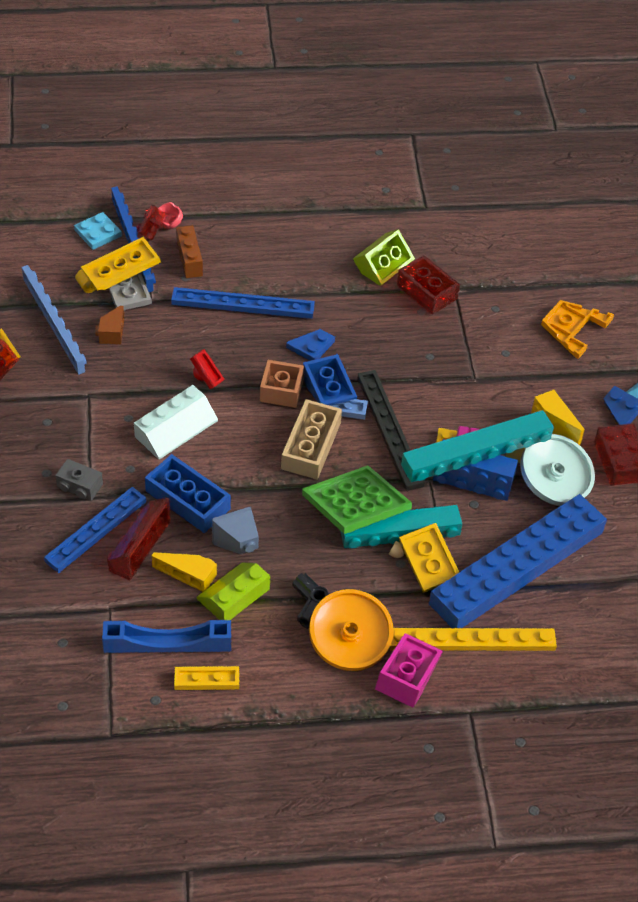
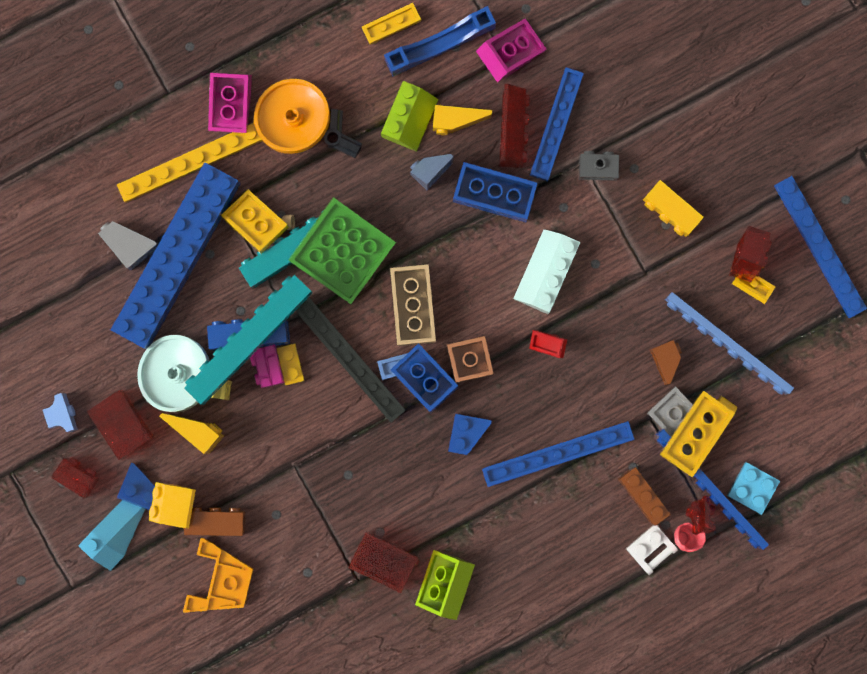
camera: 160 degrees right, 35 degrees up
(34, 424) = (672, 209): none -> yellow brick
(103, 601) = (510, 50): none -> dark pink slope
(205, 228) = (646, 544): none -> white plate
(562, 360) = (216, 522): none -> dark orange brick
(563, 590) = (127, 244): none -> light grey slope
(596, 378) = (172, 505): none -> yellow slope

